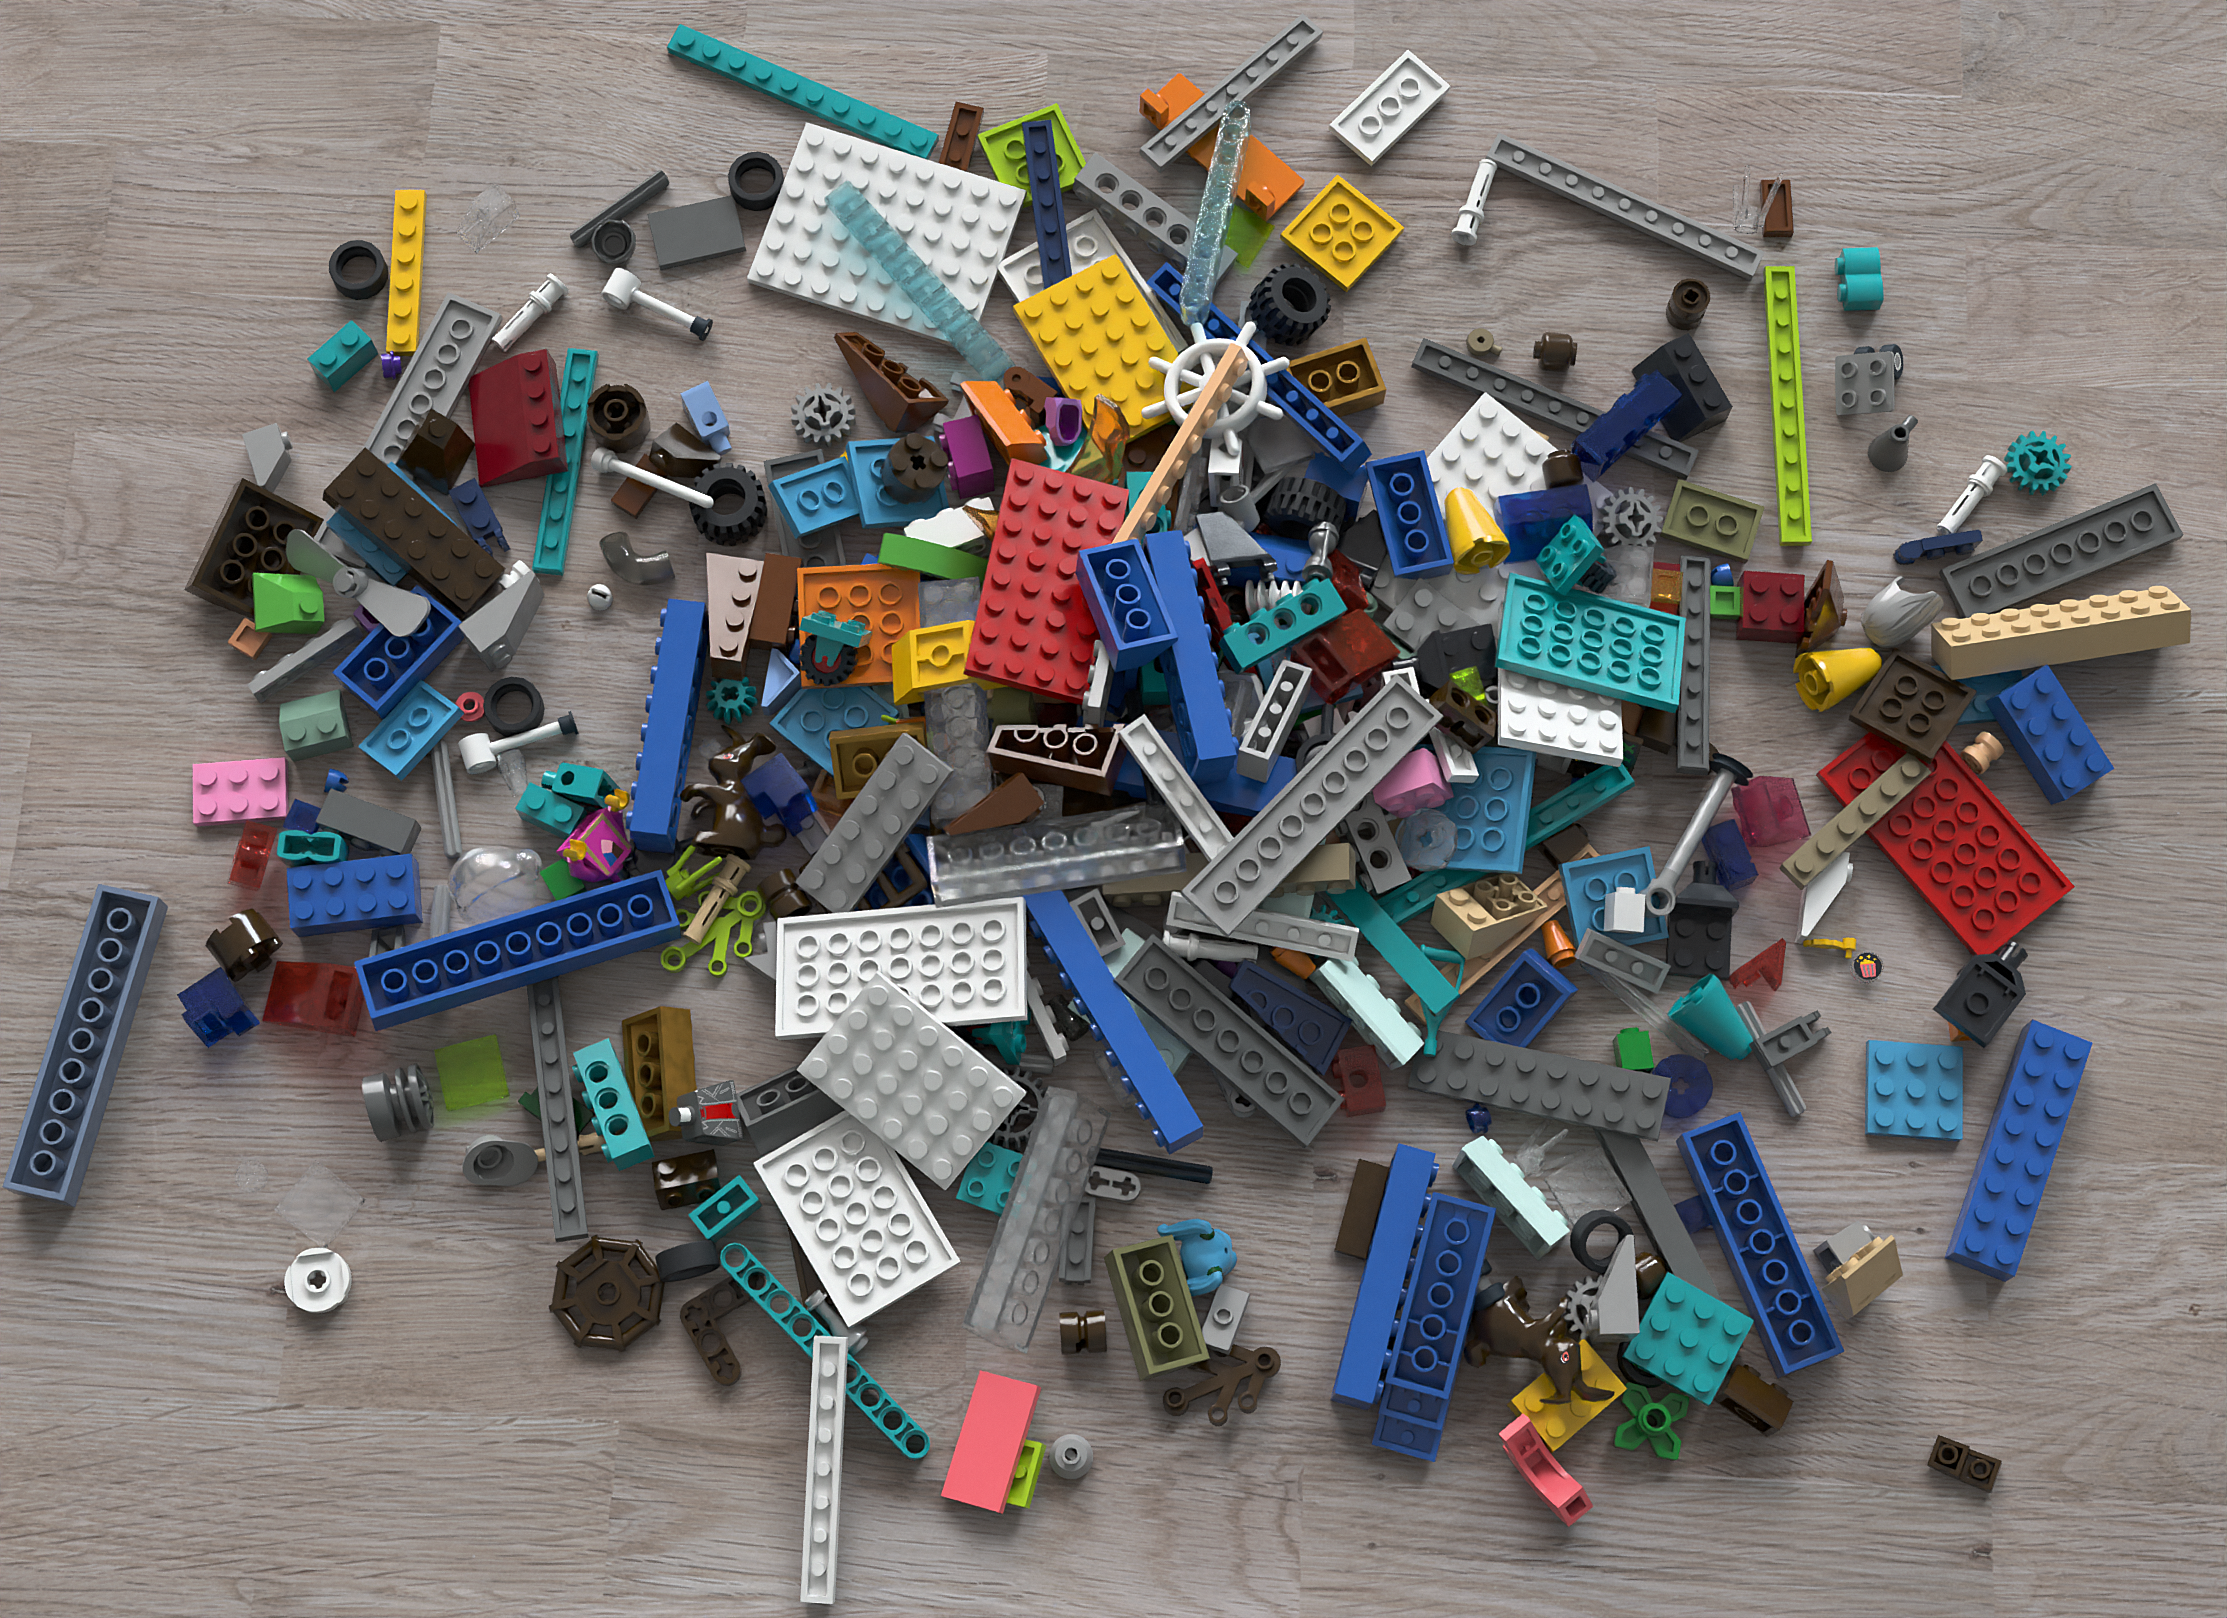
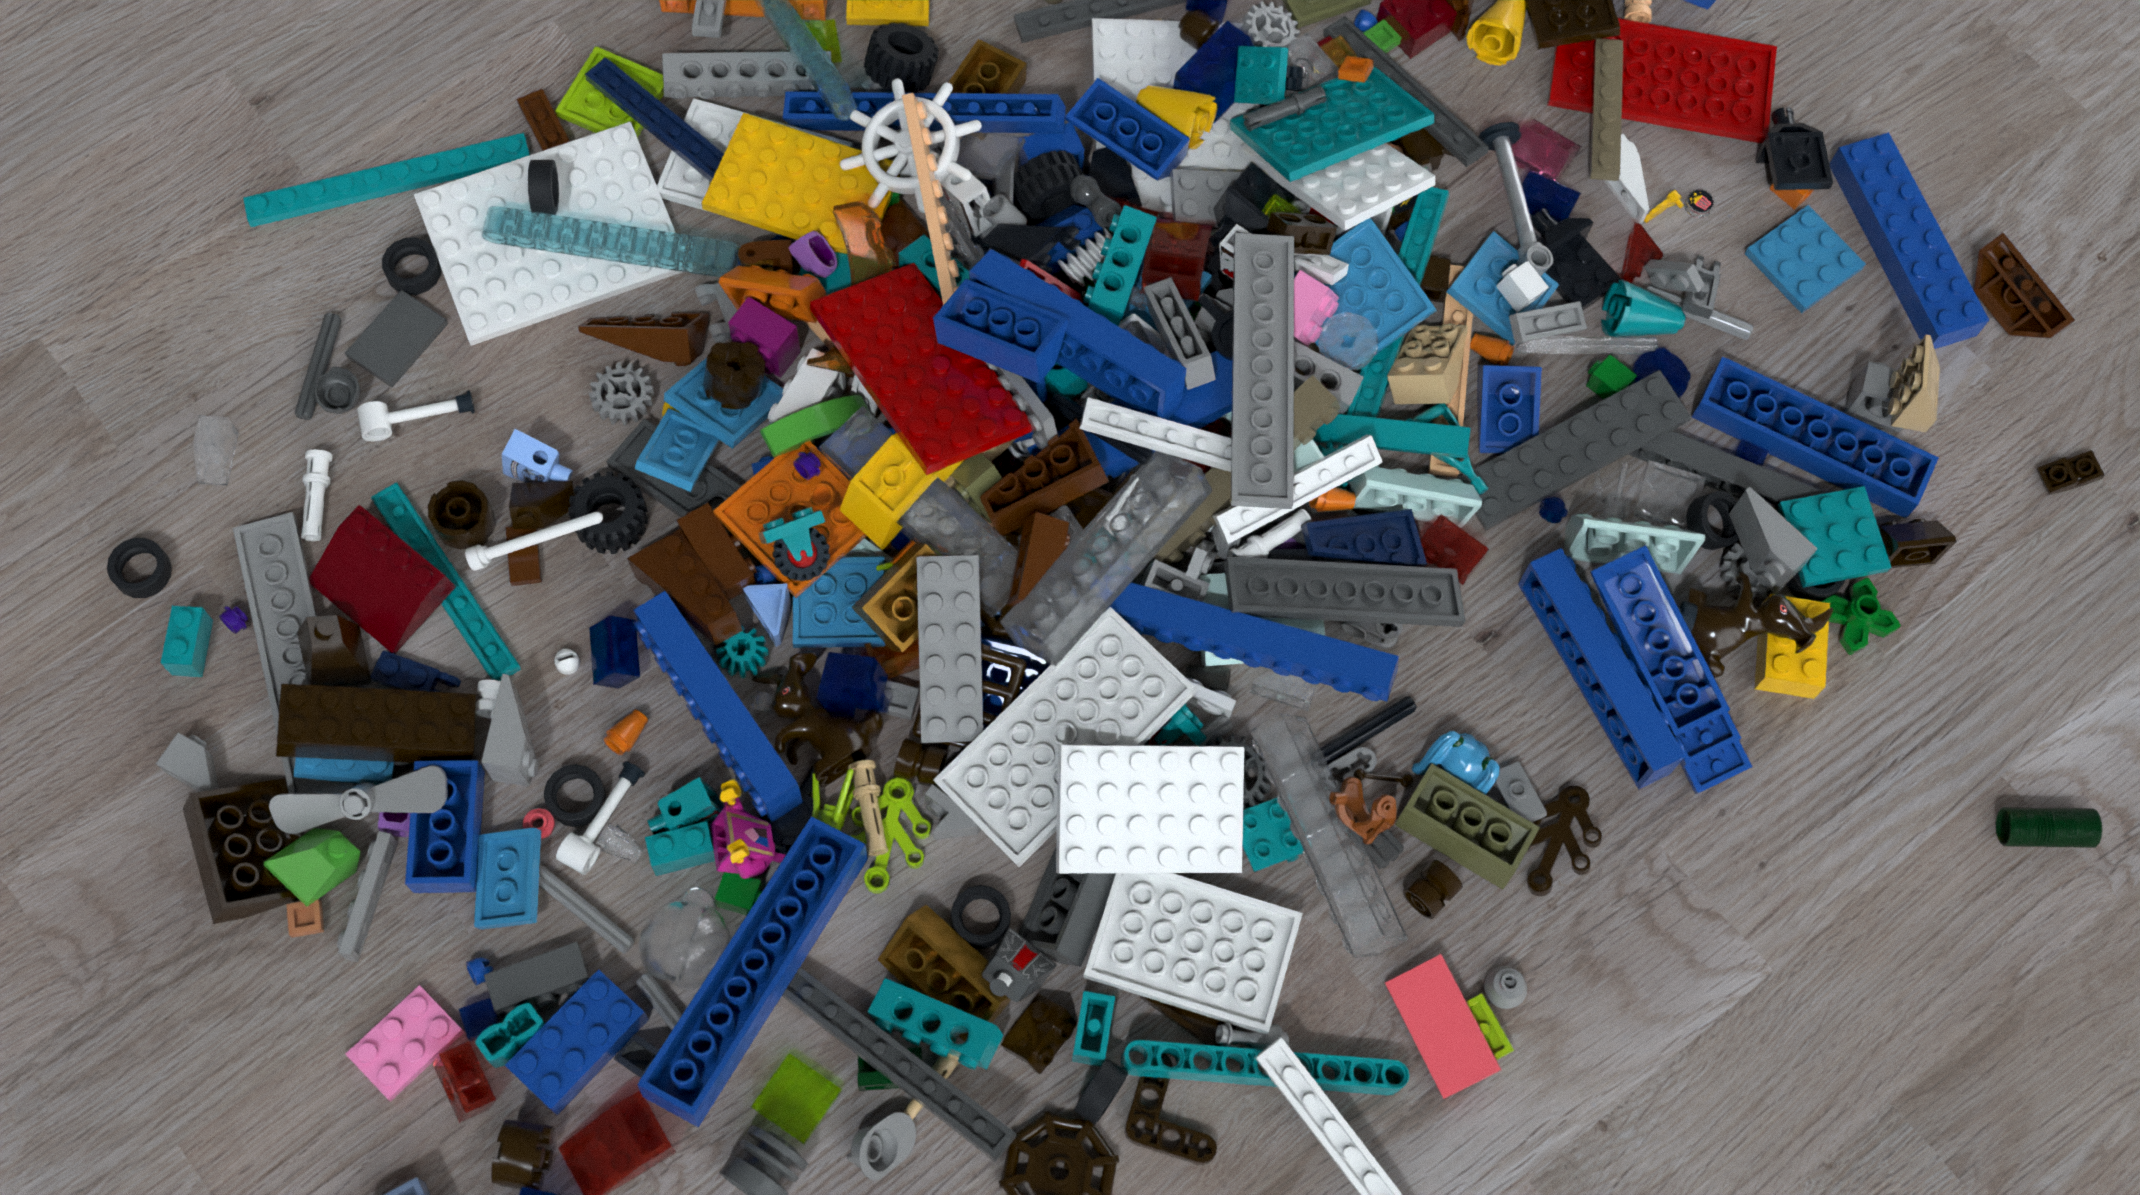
camera: 45 degrees left, 5 degrees down
(315, 726) = (422, 939): sand green slope -> none
(406, 272) = (181, 541): yellow plate -> none
(592, 689) = (625, 733): none -> orange cone
(634, 567) = (573, 616): clear smoke cylinder -> none
(634, 619) = (614, 652): none -> clear blue brick
(715, 1031) = (986, 893): none -> black tyre
(897, 590) = (807, 465): none -> dark purple plate
(901, 196) = (543, 186): none -> black tyre
(1081, 1213) = (1350, 805): none -> dark orange helmet
(1137, 918) = (1201, 560): none -> light grey plate
(1148, 1231) = (1405, 780): none -> dark brown hinge
(1361, 1209) = (1535, 638): dark brown tile -> none
(1543, 1472) = (1828, 711): coral arch -> none
(1564, 600) = (1293, 104): none -> dark grey pin
(1663, 612) = (1355, 69): none -> orange tile
(1769, 1010) = (1674, 275): none -> light grey plate
(2074, 1275) = (2017, 293): none -> reddish brown wedge

